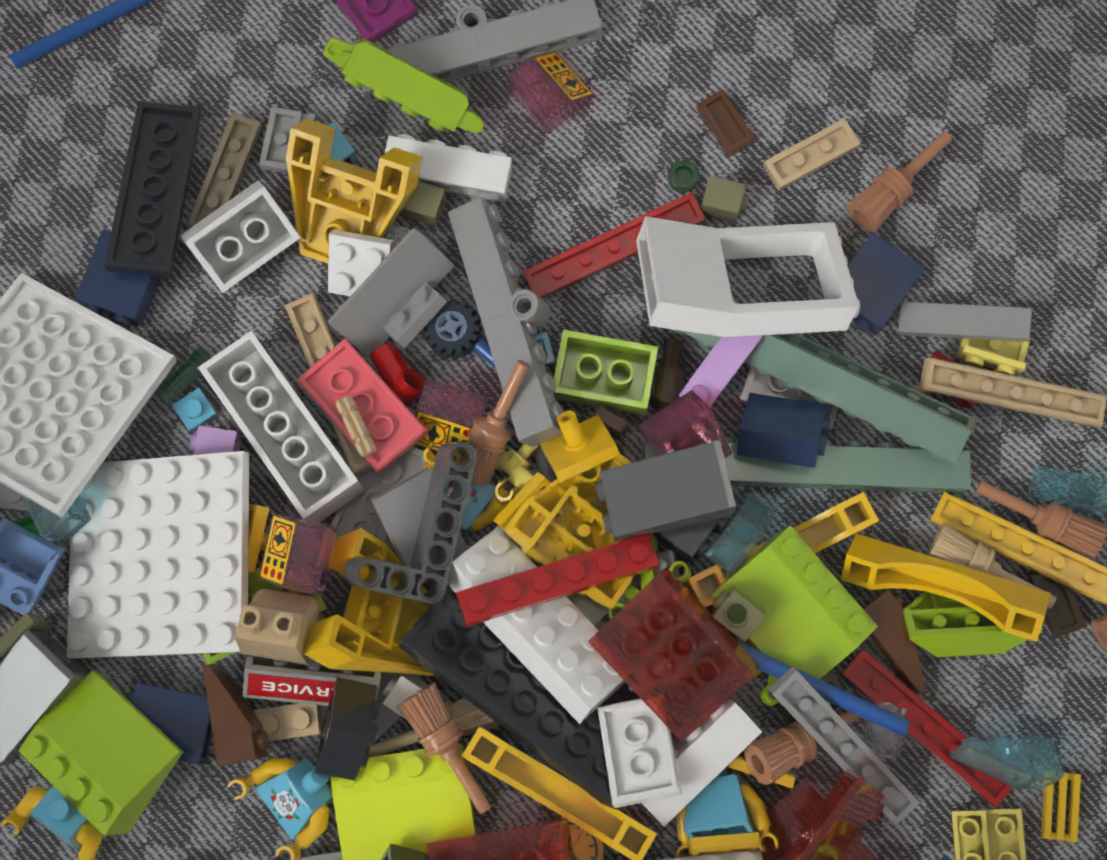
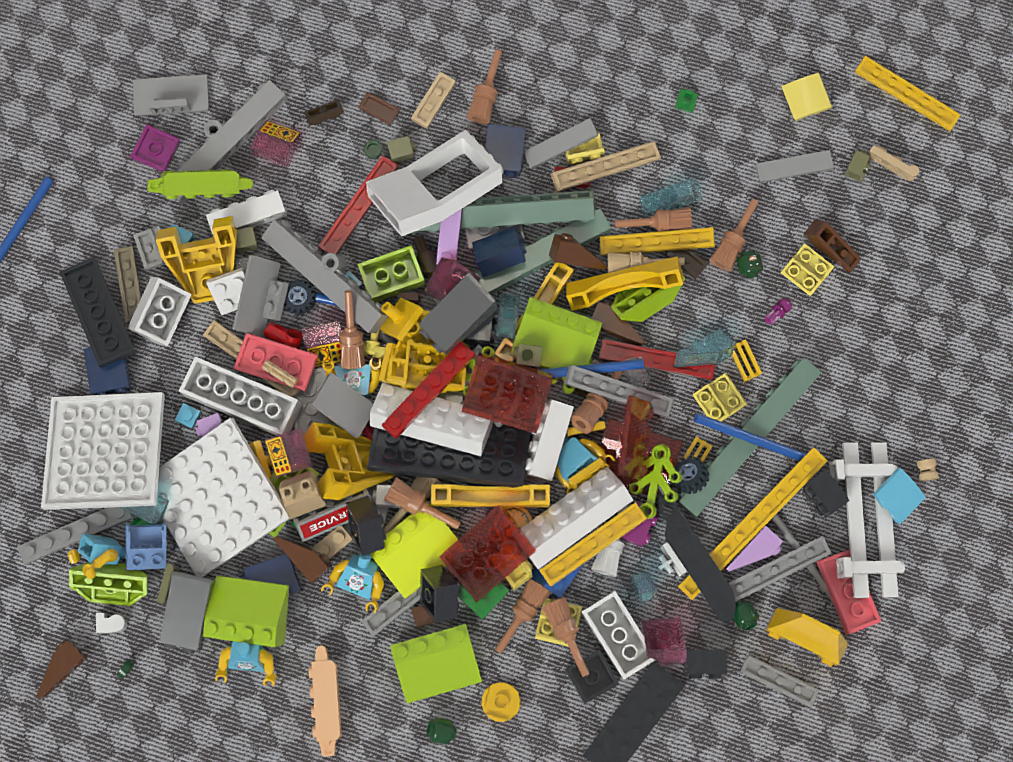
camera: 30 degrees left, 0 degrees up
(182, 375) = (171, 400): clear green tile -> none
(428, 534) = (350, 405): dark grey beam -> none
(637, 754) = (518, 452): white tile -> none
(650, 85) = (321, 113): none -> dark brown plate
(888, 490) = (569, 251): none -> reddish brown slope

